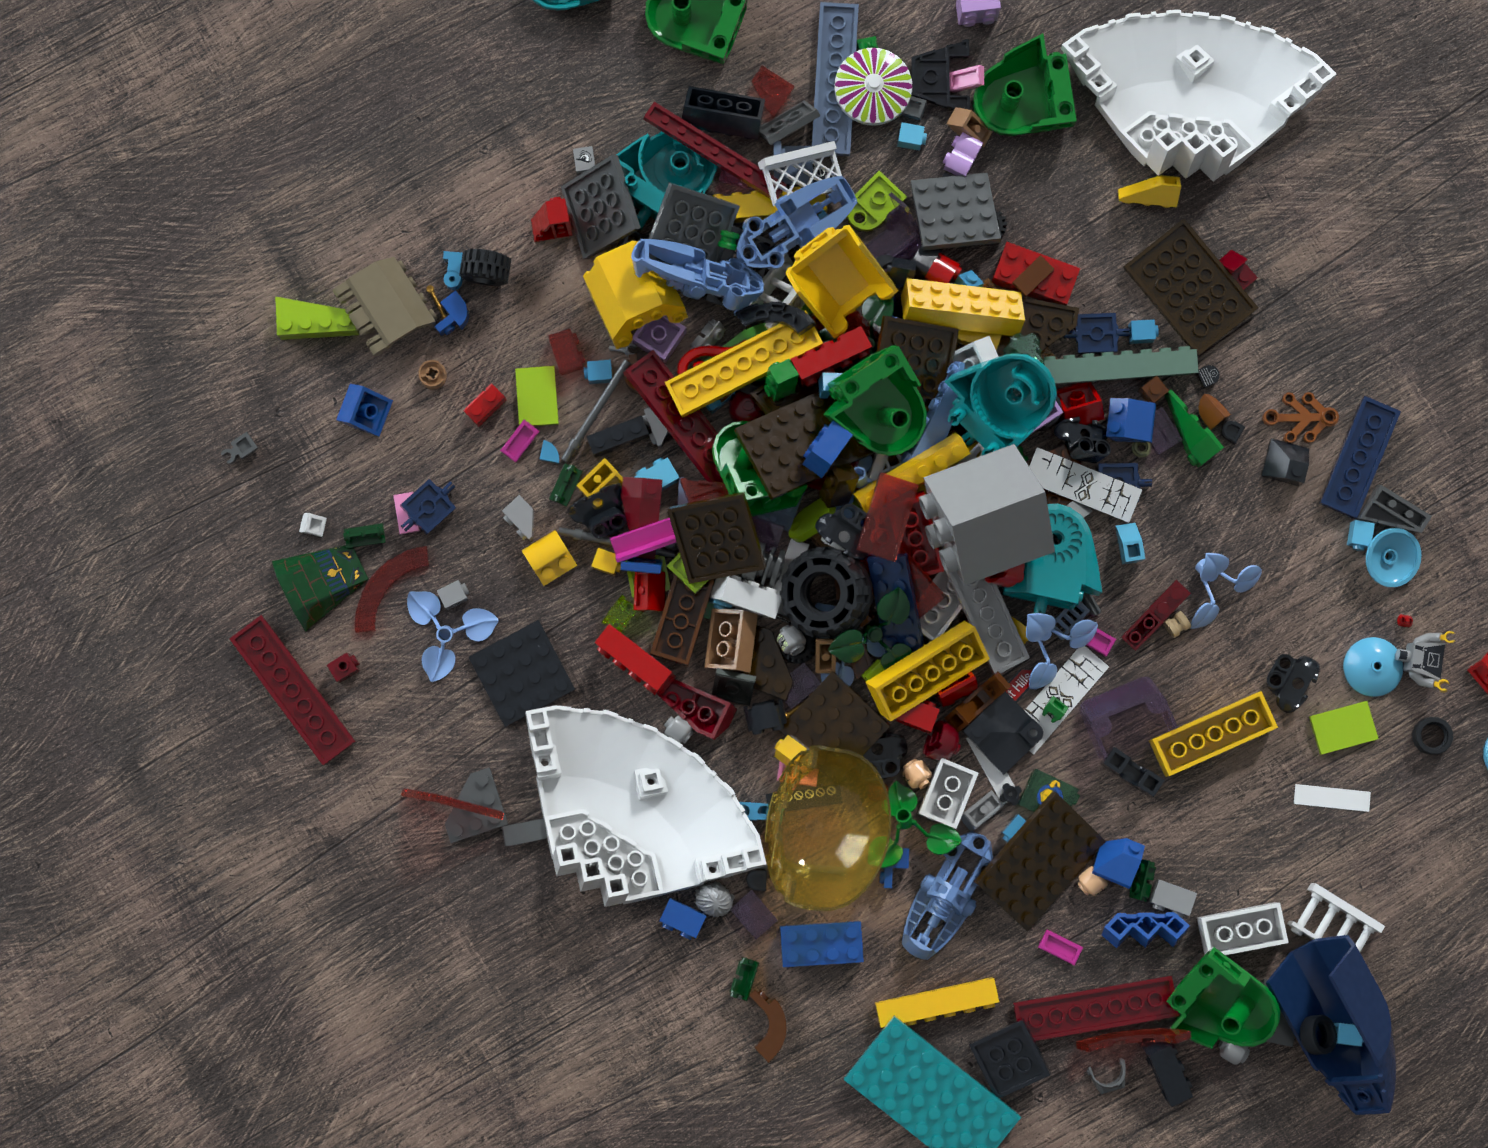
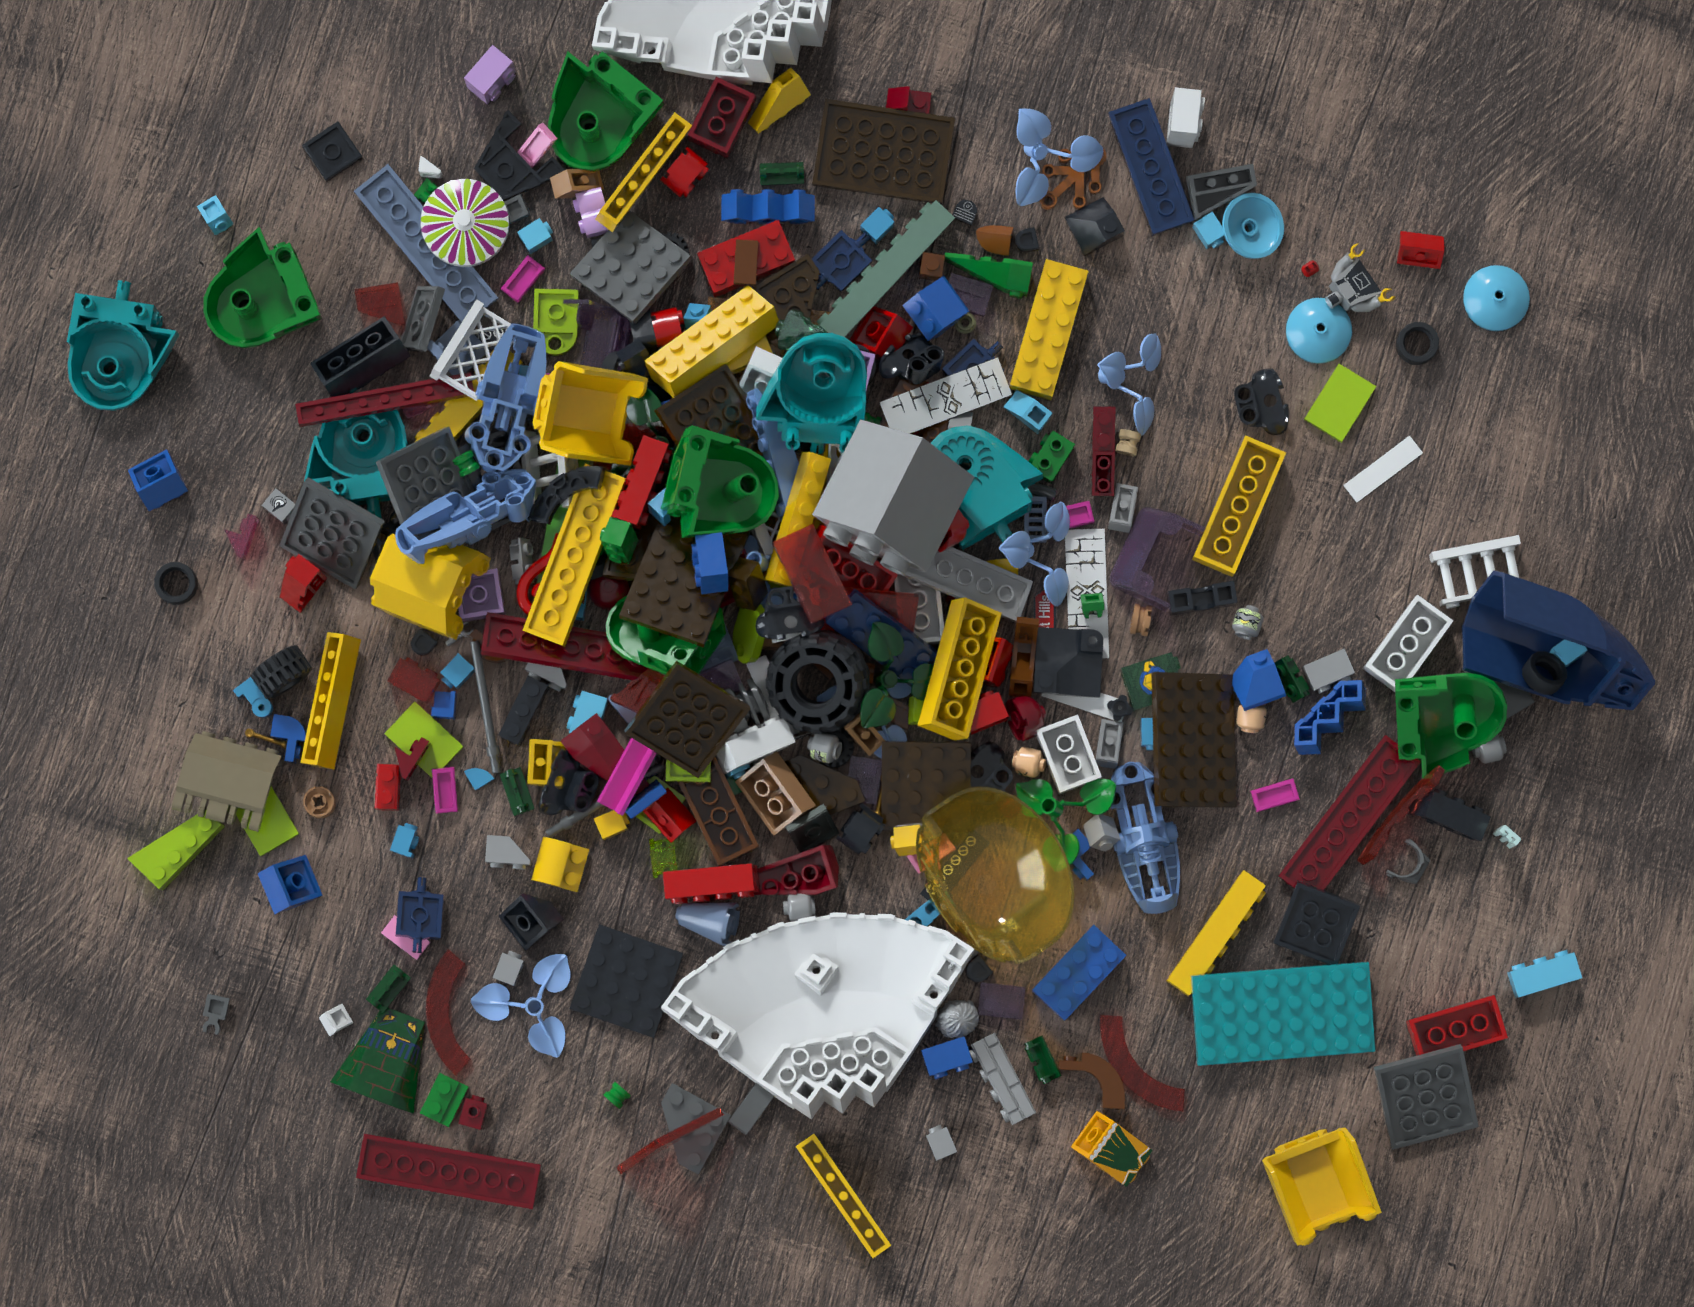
camera: 40 degrees left, 0 degrees up
(333, 641) = (444, 1099): none -> green plate
(391, 363) = (275, 827): none -> lime tile
(446, 742) = (617, 1095): none -> green wheel
(464, 449) = (405, 840): none -> dark azure brick
(468, 135) = (173, 566): none -> black tyre
(497, 575) = (530, 919): none -> black slope
(500, 315) = (330, 700): none -> yellow brick
(512, 401) = (409, 763): none -> dark red slope
(521, 74) = (157, 480): none -> blue slope
(531, 946) = (843, 1196): none -> yellow brick
(540, 162) = (242, 542): none -> clear pink slope
(571, 386) = (444, 705): none -> blue panel
(594, 333) = (422, 643): none -> black tile
(612, 684) = (710, 920): none -> sand blue cone
(627, 970) = (940, 1142): none -> light grey brick
(707, 967) = (1003, 1079): none -> light grey brick
(735, 1080) = (1112, 1148): none -> slope
(795, 1041) = (1130, 1072): none -> clear red tile
(877, 157) = (522, 279): none -> dark pink tile
(881, 32) = (428, 170): none -> white slope
(922, 865) = (1101, 832): none -> light grey brick
(1020, 157) = (643, 172): none -> yellow brick
(1046, 182) = (684, 172): none -> red brick
(1078, 748) = (1140, 619): none -> medium nougat wheel
(1081, 254) = (768, 207): none -> blue brick
(1104, 169) = (721, 117): none -> dark red brick
(1110, 241) = (781, 173): none -> dark green hinge
(1119, 586) = (1052, 455): none -> green brick
(1134, 664) = (1123, 508): none -> light grey slope
(1147, 816) = (1247, 622): none -> light grey head
(1193, 502) = (1048, 329): none -> yellow brick
(1194, 1124) = (1507, 837): none -> light aqua tile
(1304, 358) = (1031, 129): none -> light blue plant
(1414, 444) = (1184, 117): none -> white brick

